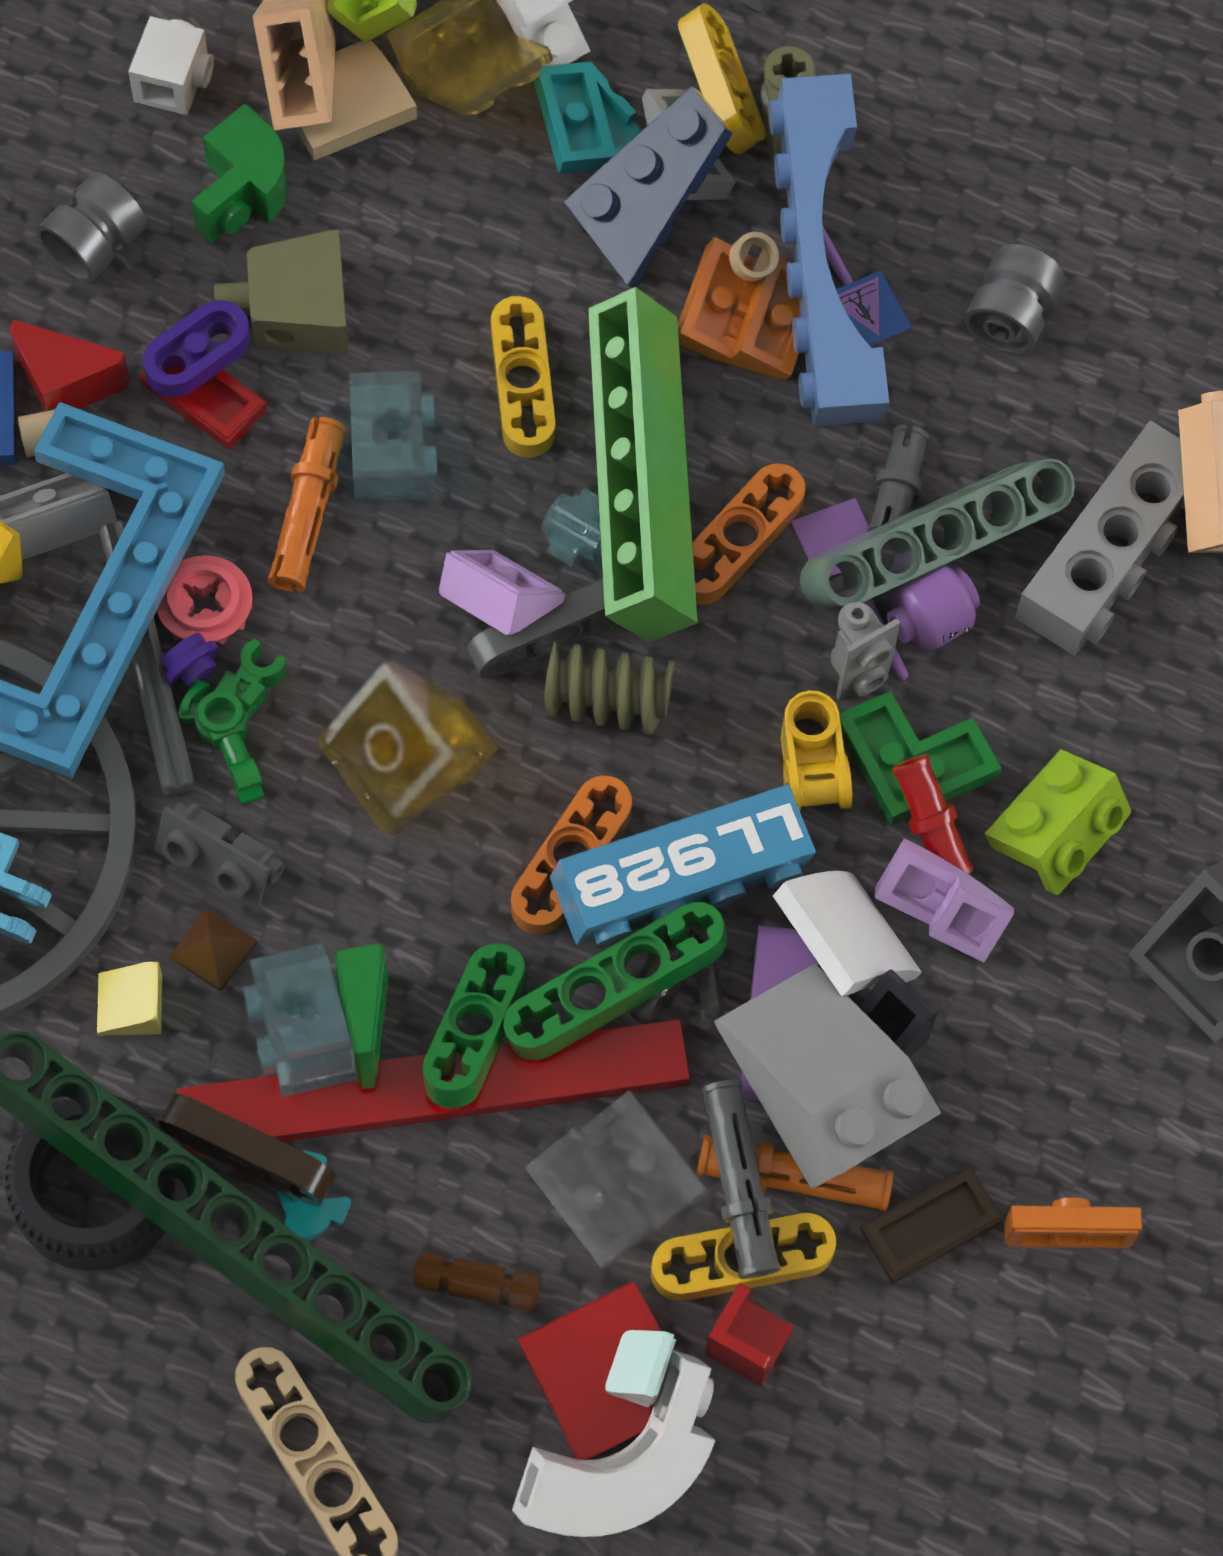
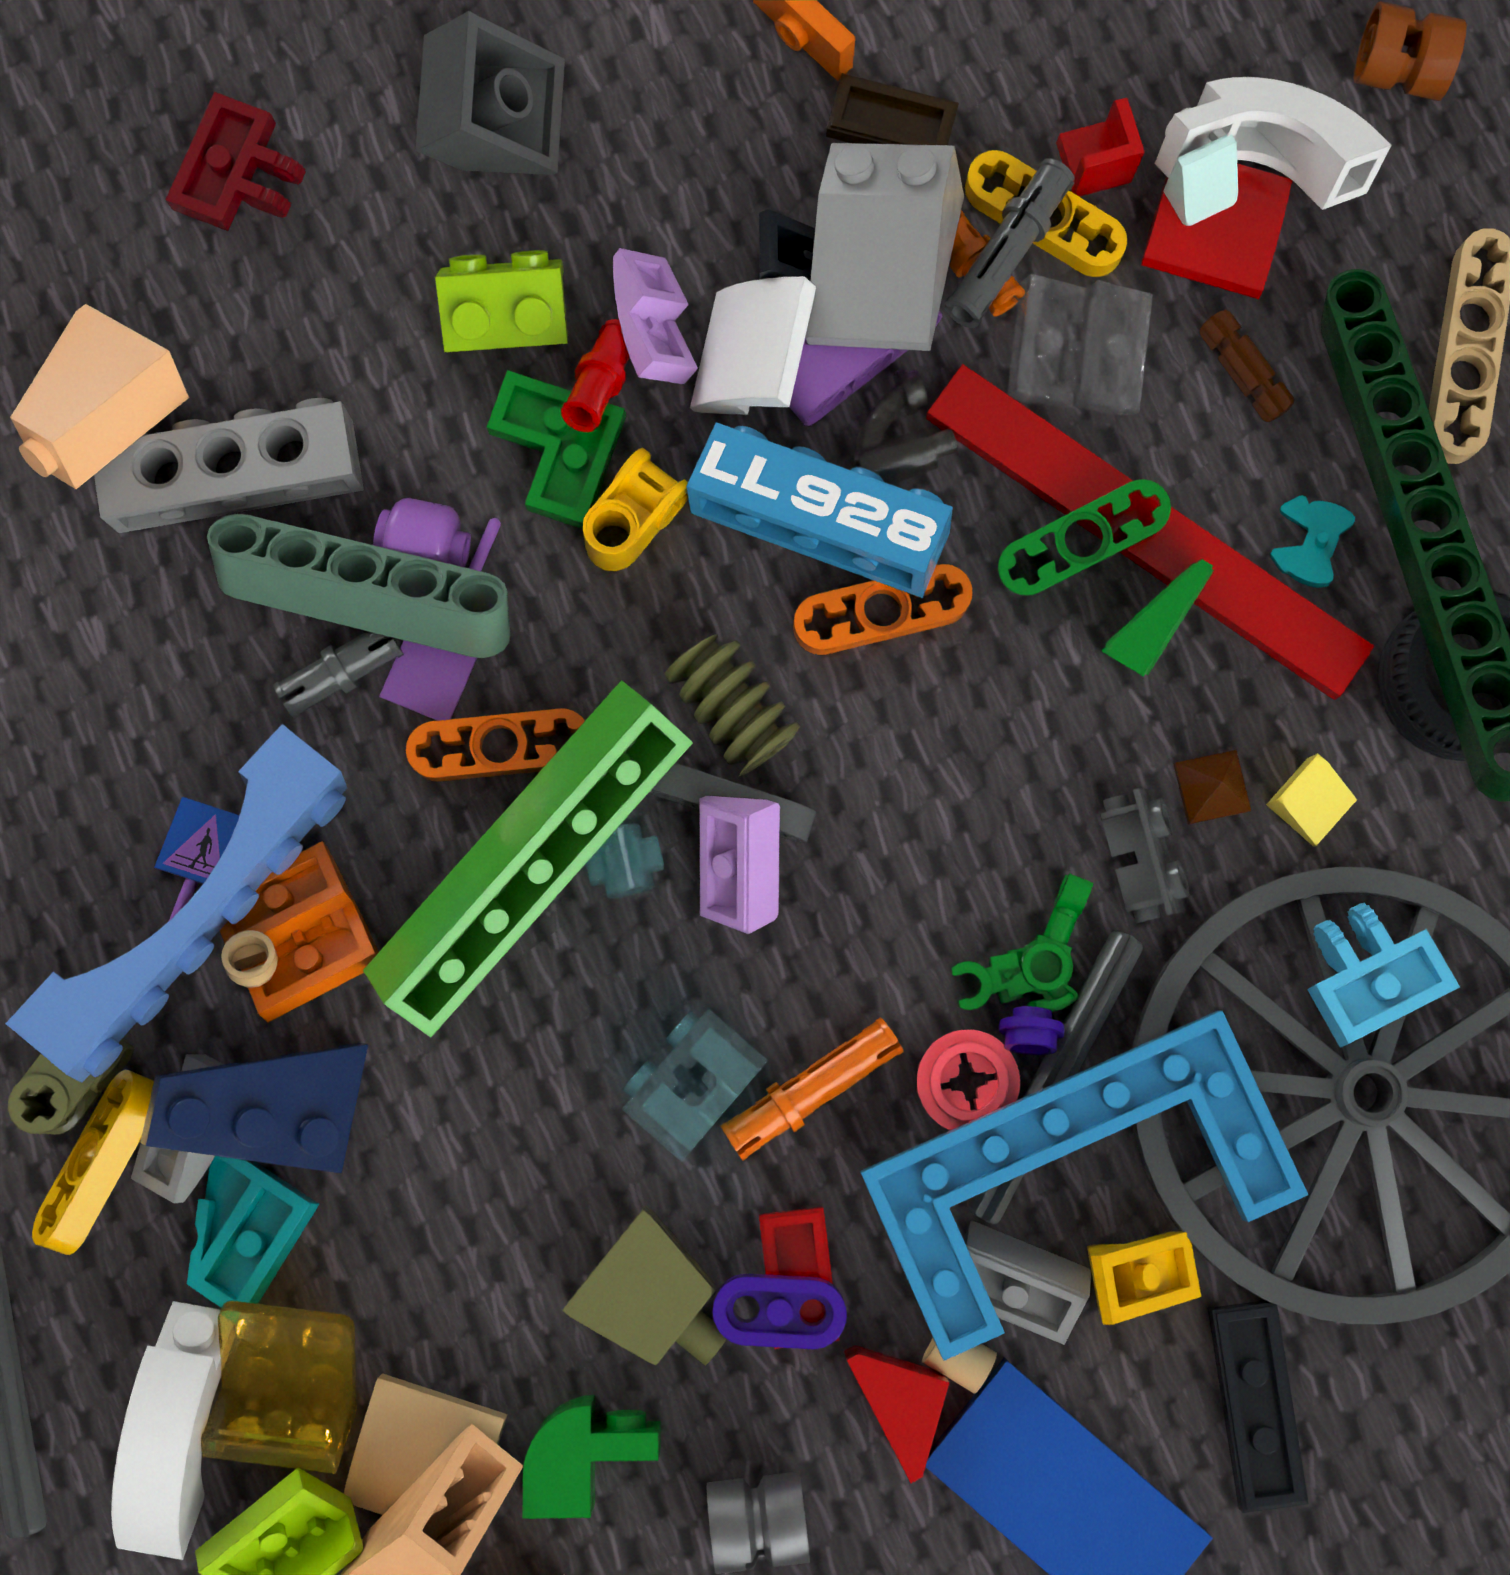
camera: 135 degrees left, 15 degrees up
(247, 1149) = (1345, 587): dark brown beam -> none
(301, 1020) = (1214, 616): clear light blue brick -> none
(404, 745) = (931, 801): clear yellow slope -> none
(533, 356) = (489, 1072): yellow beam -> none
(609, 971) = (958, 458): green beam -> none
(862, 650) = (521, 540): light grey hinge -> none
(1014, 297) = (71, 733): flat silver wheel -> none

